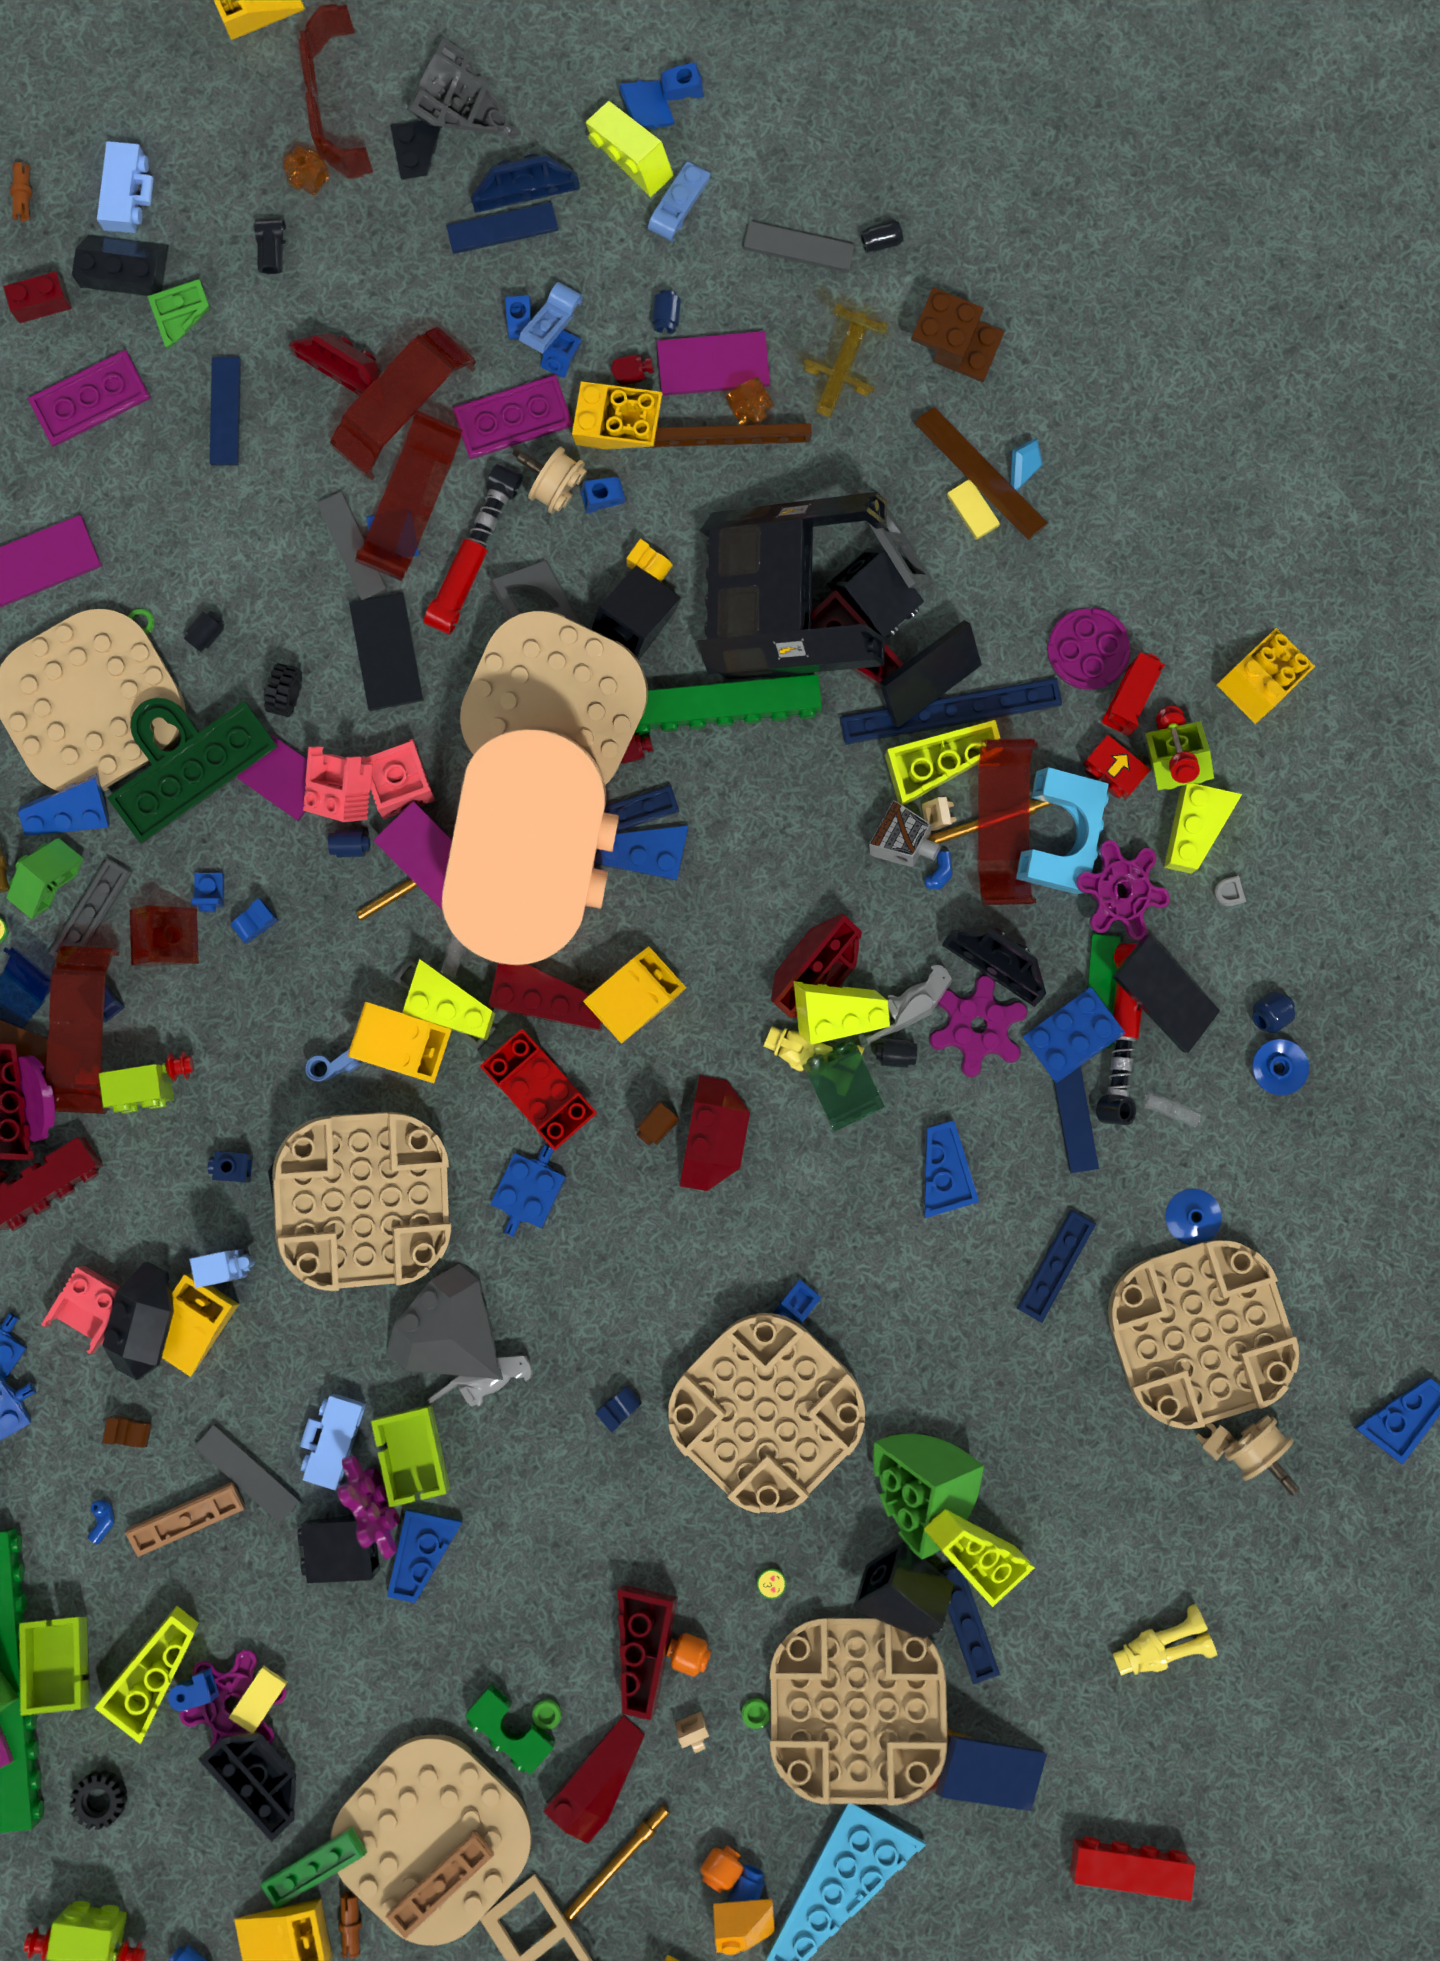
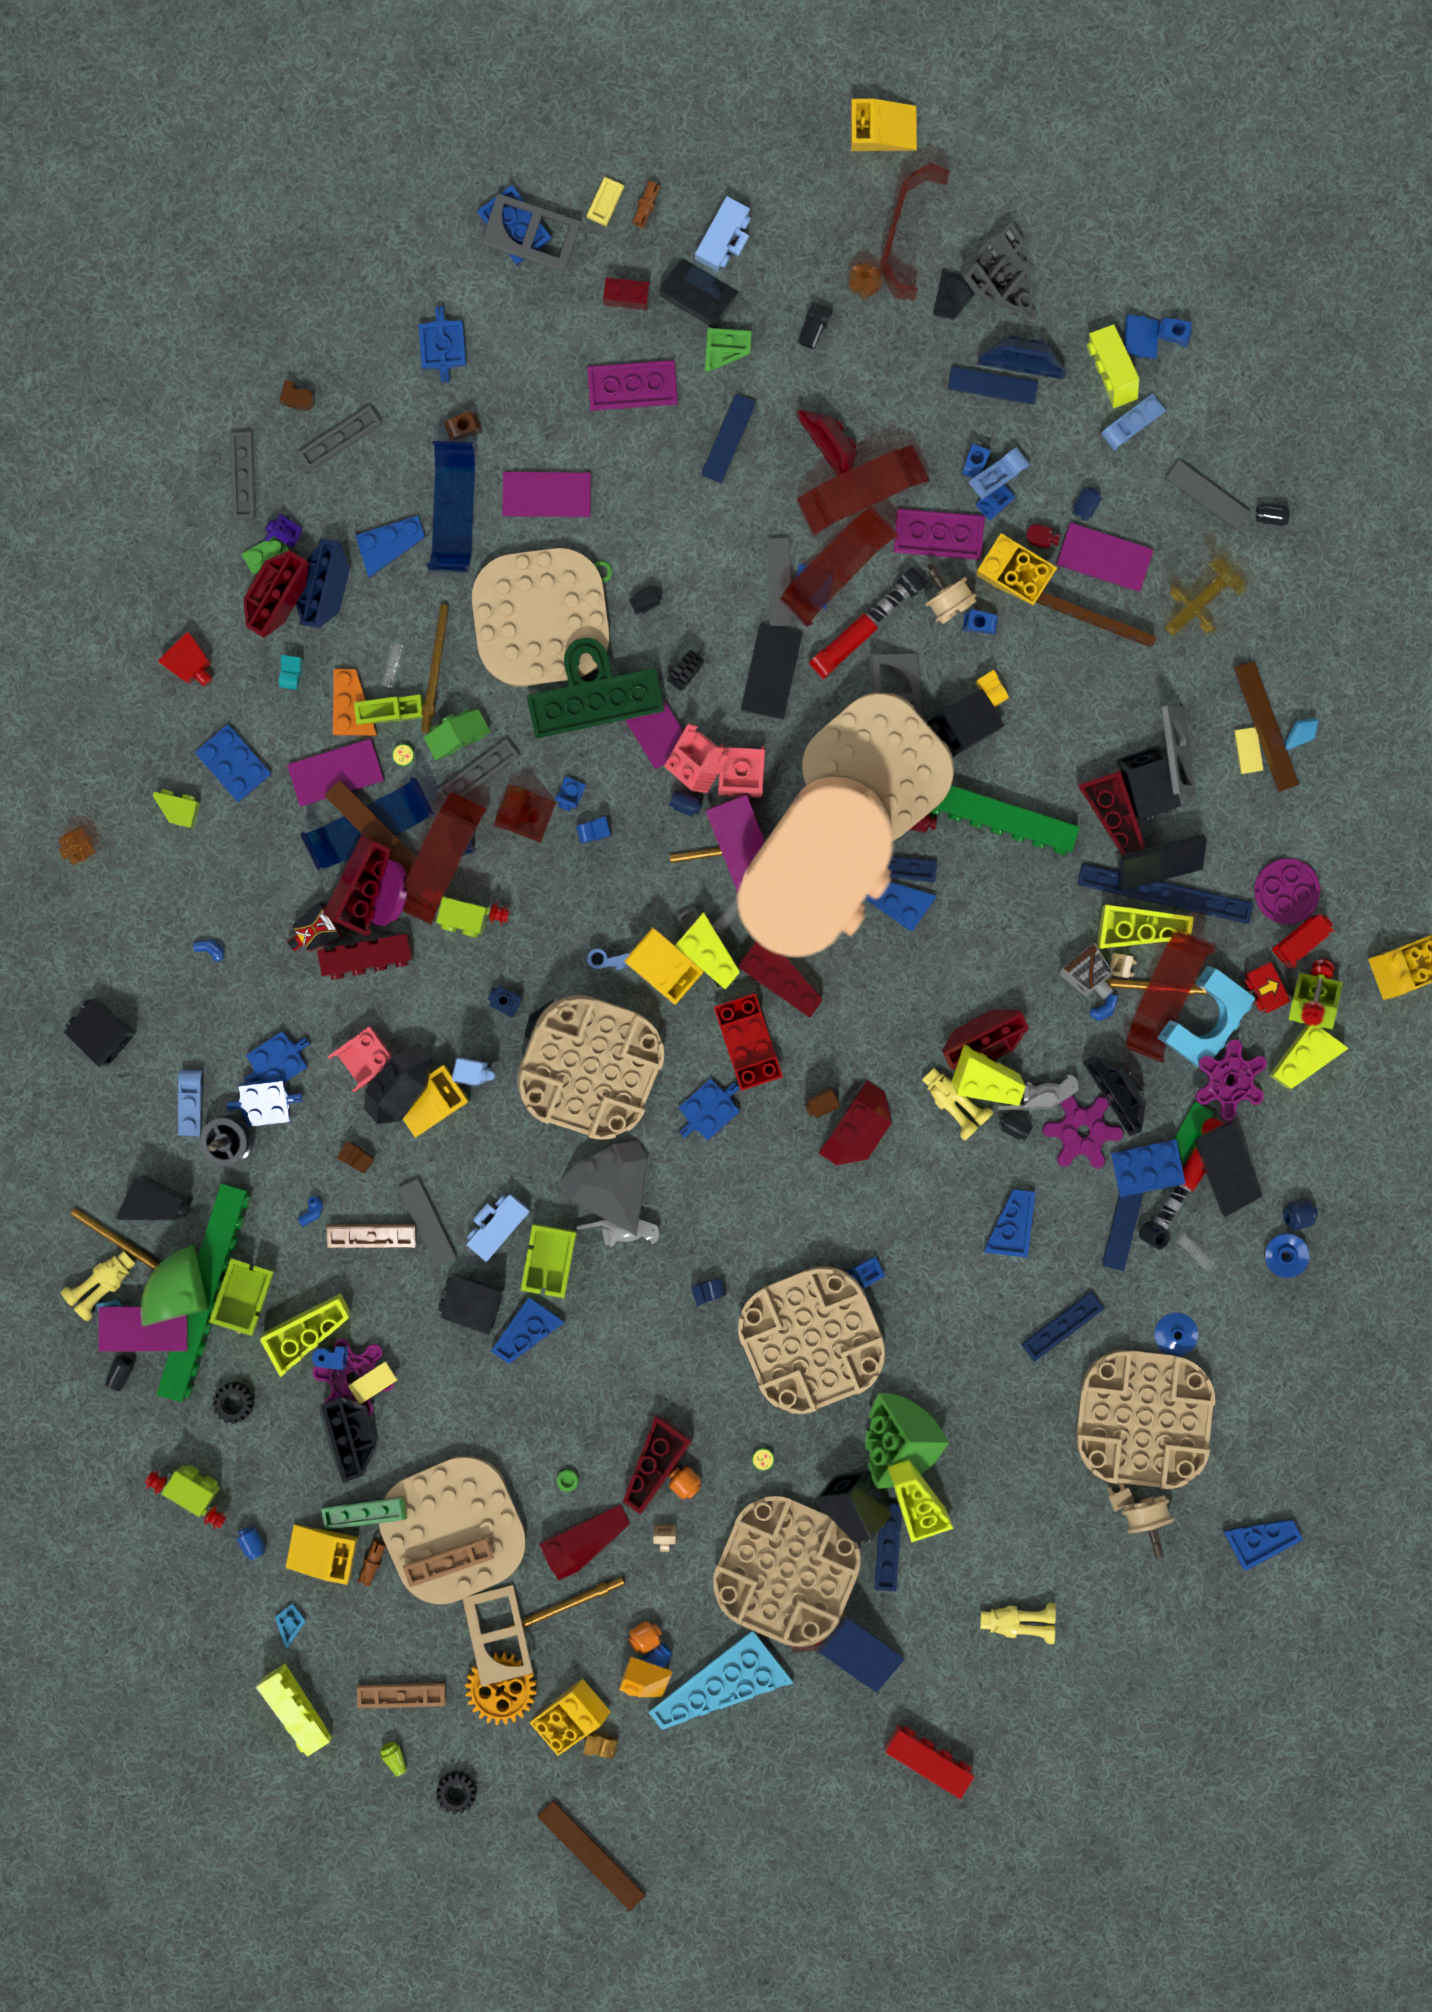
camera: 30 degrees right, 5 degrees up
(72, 809) = (494, 692): blue wing -> none
(368, 1503) = (507, 1279): magenta plate -> none
(525, 1749) = (543, 1497): green arch -> none
(635, 994) = (846, 1004): yellow slope -> none
(750, 402) = (1119, 600): clear orange brick -> none
(756, 1713) = (713, 1543): bright green tile -> none
(764, 591) = (1068, 748): black piece -> none
(843, 1085) = (967, 1133): clear green panel -> none
(957, 335) = (1295, 616): reddish brown bracket -> none
(1229, 892) = (1308, 1113): light grey tile -> none

